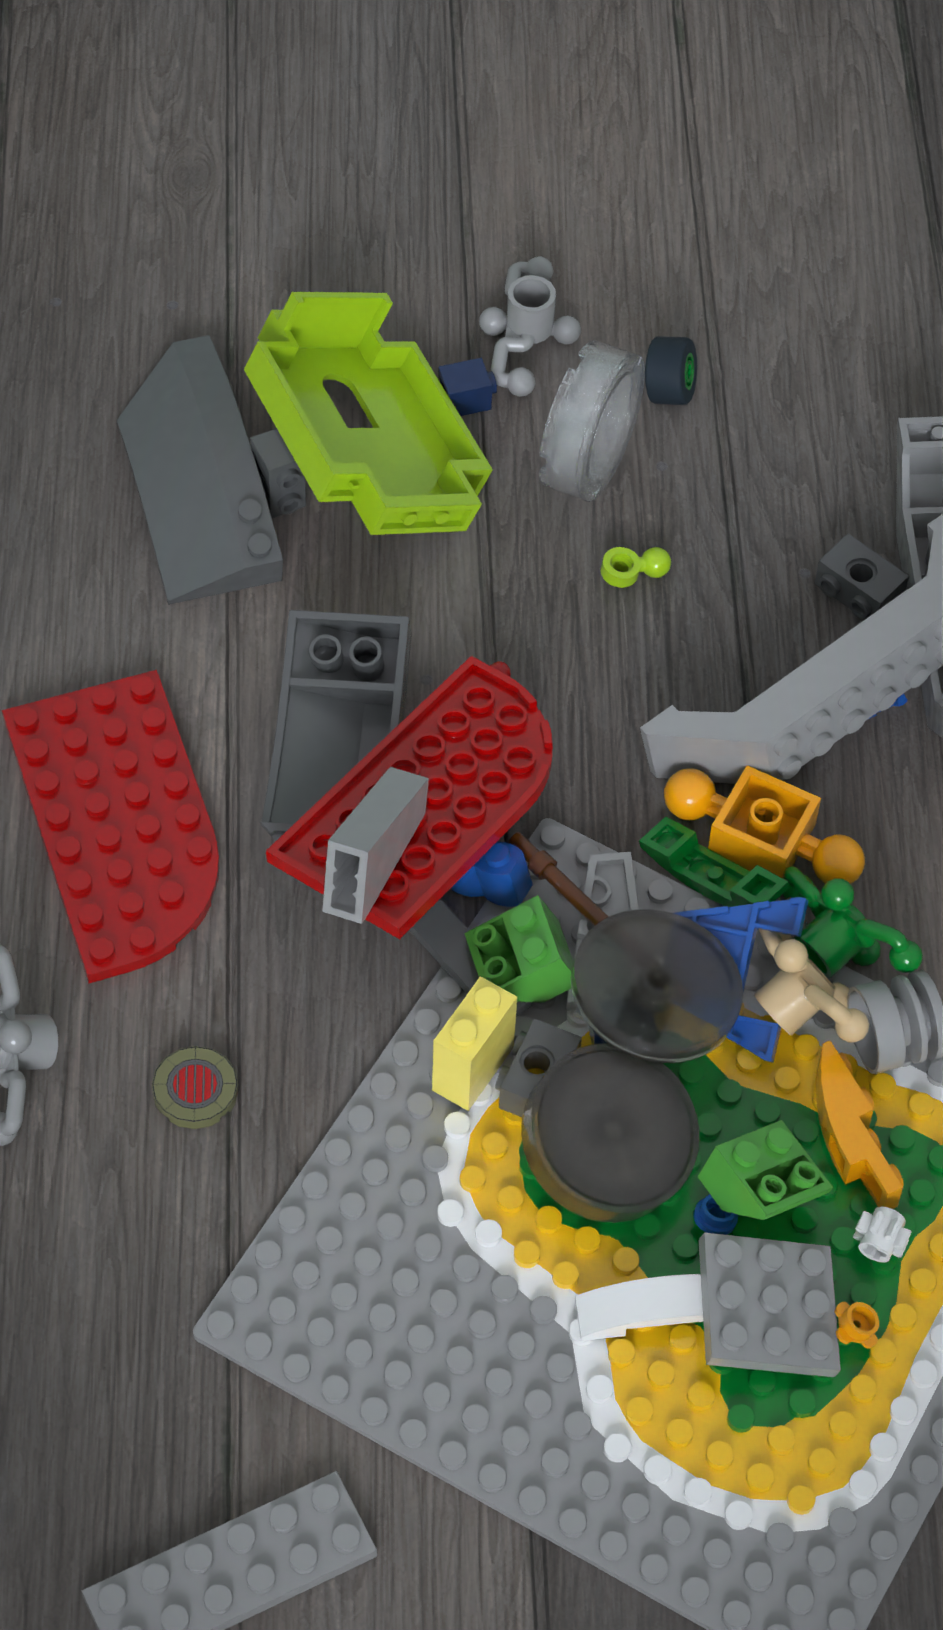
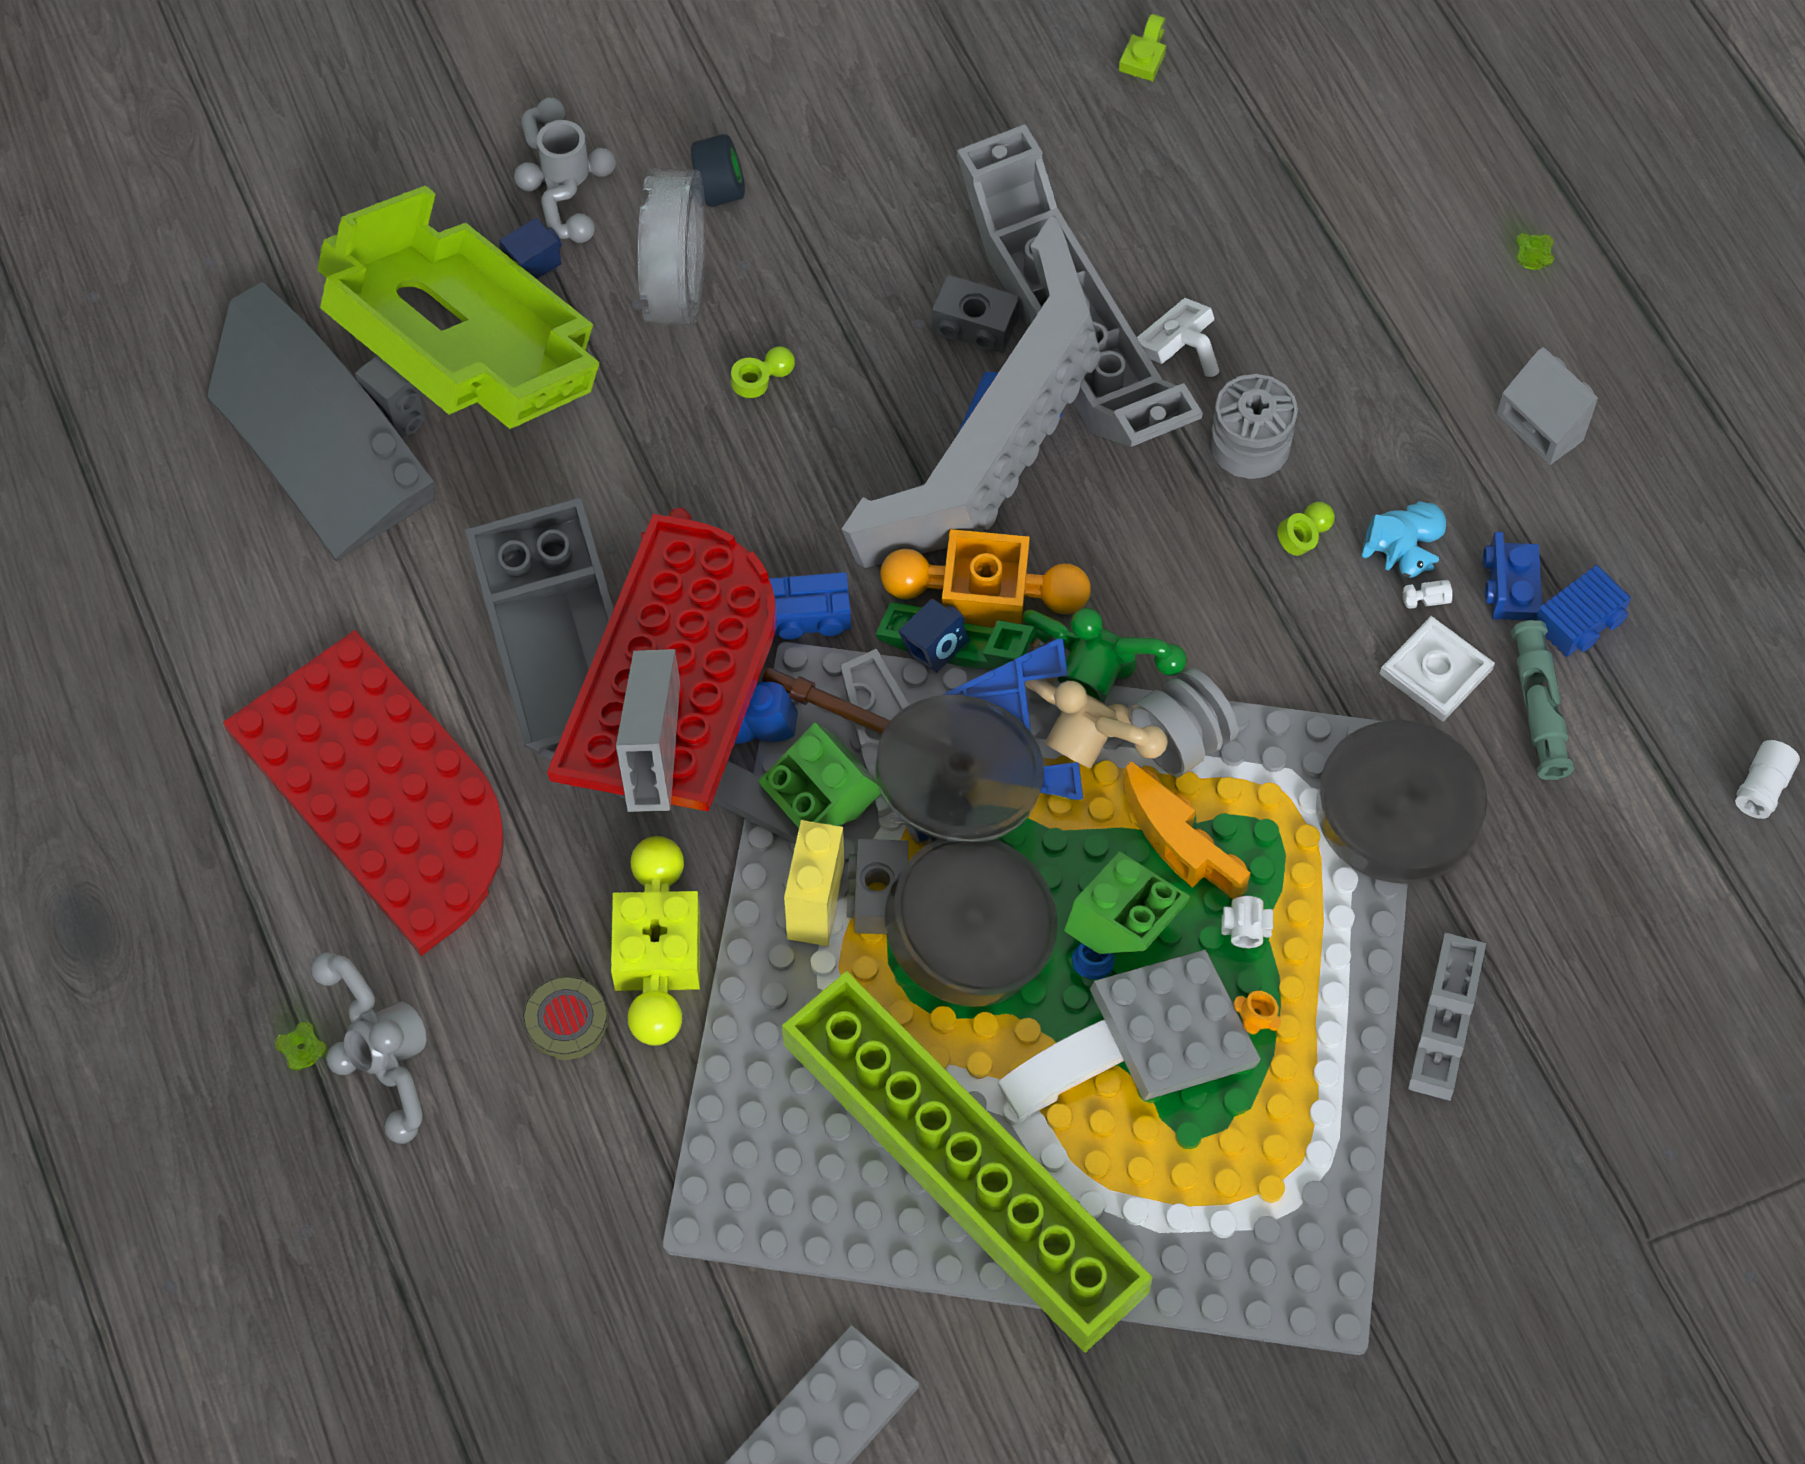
camera: 20 degrees left, 5 degrees up
(307, 1046) = (660, 965): none -> neon yellow brick
(510, 1360) = (967, 1161): none -> lime brick
(586, 791) = (811, 605): none -> blue brick
(692, 858) = (934, 635): none -> dark blue brick

